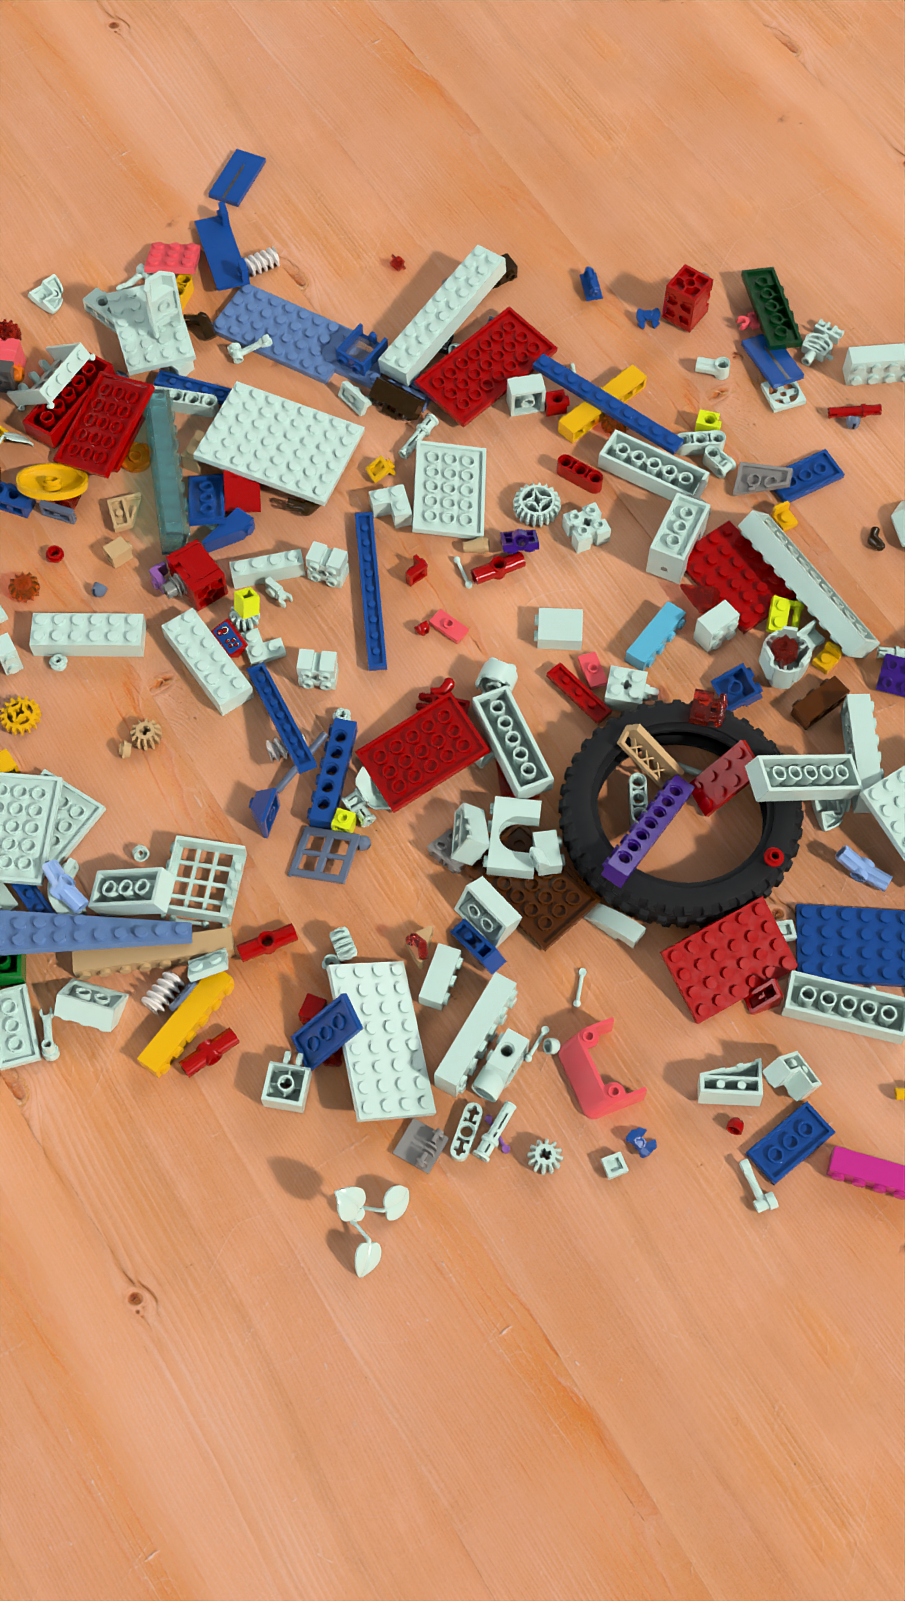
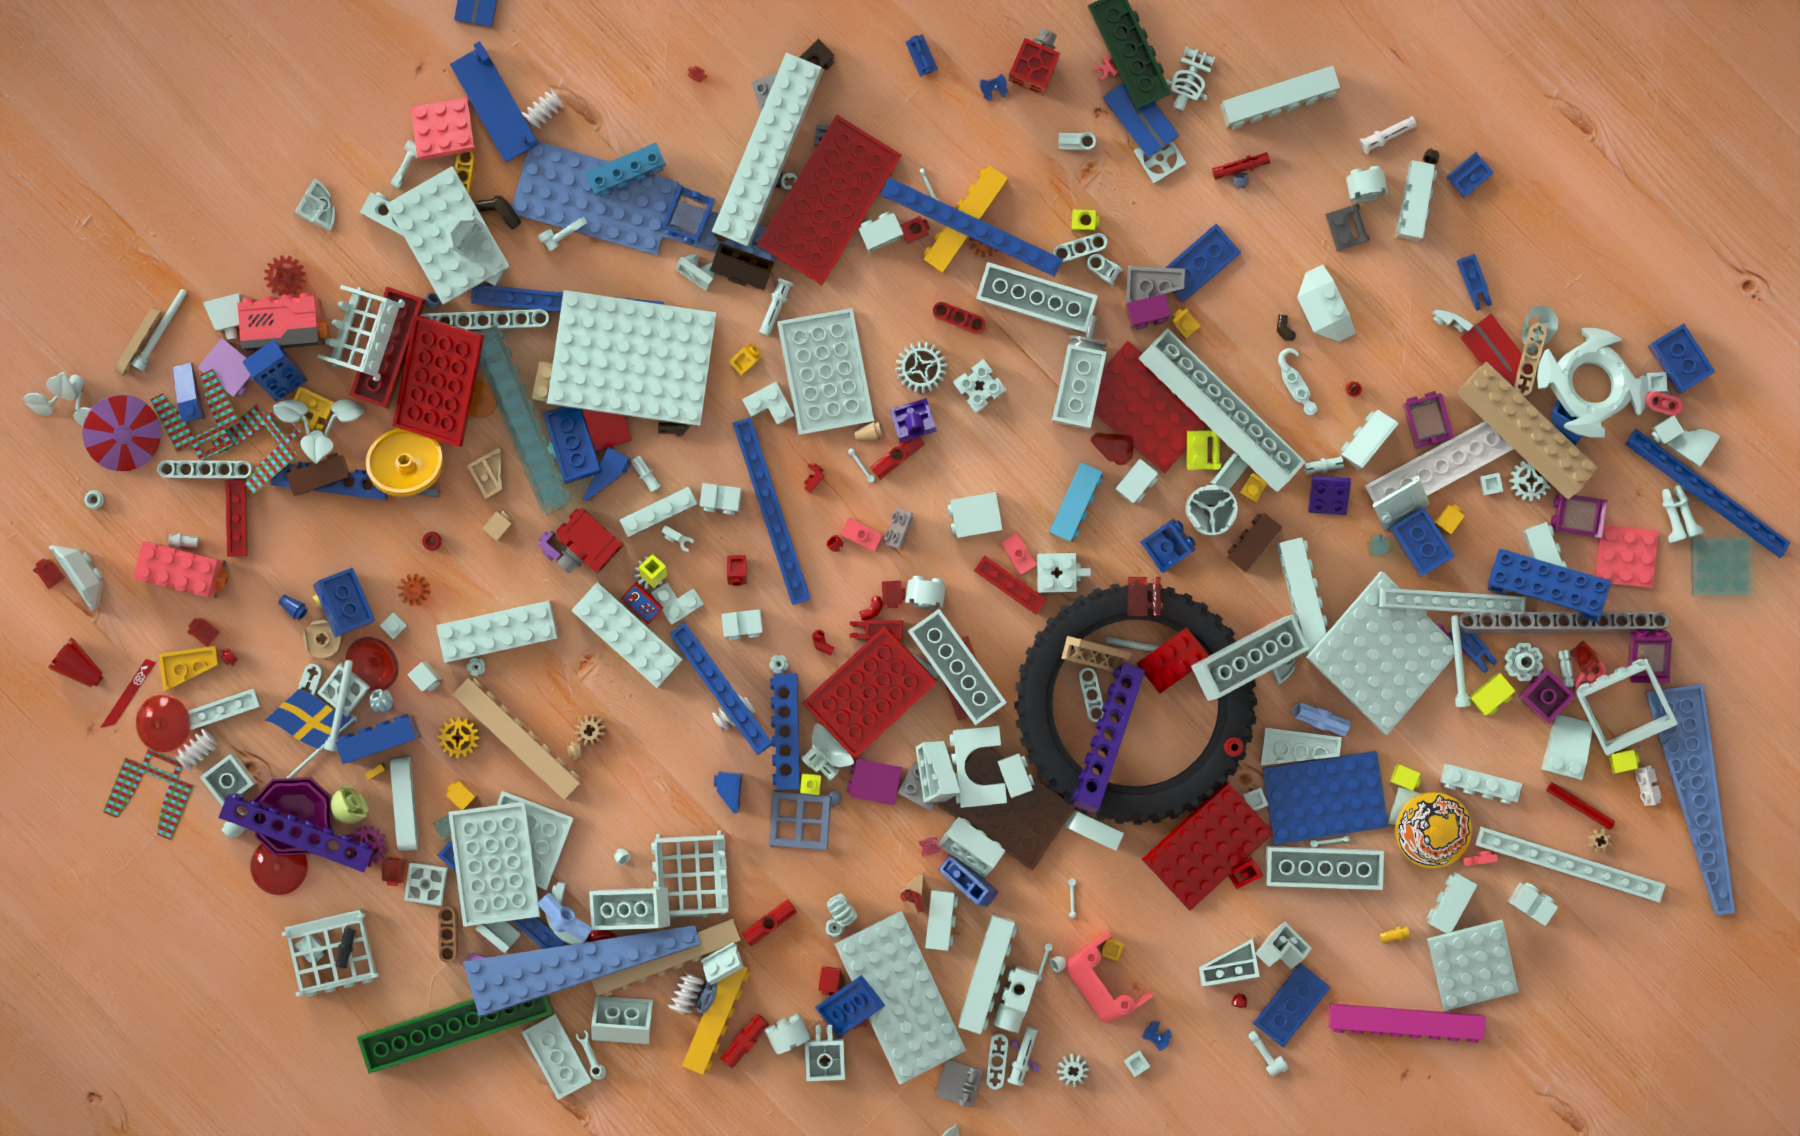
camera: 15 degrees left, 25 degrees up
(75, 727) = (517, 738): none -> tan brick
(99, 589) = (491, 574): sand blue hinge -> none
(254, 1050) = (787, 1034): none -> light aqua brick
(265, 539) = (645, 473): none -> light aqua axle
(293, 771) = (758, 714): sand blue bar -> none
(317, 309) = (626, 169): none -> dark azure brick
(324, 631) = (737, 570): none -> red bracket
(386, 706) = (820, 643): none -> red arm
(407, 835) = (874, 781): none -> magenta brick
(446, 905) = (929, 846): none -> clear pink wheel
(465, 676) = (892, 593): none -> clear red brick
(486, 625) = (895, 534): none -> light grey hinge
(538, 859) = (1010, 791): light aqua slope -> none
(610, 1045) = (1112, 949): none -> yellow tile
(752, 494) = (1148, 311): none -> magenta brick
(784, 650) = (1213, 506): clear red brick -> none
(833, 890) = (1292, 746): none -> light aqua wing
(879, 584) = (1295, 383): none -> light aqua piece

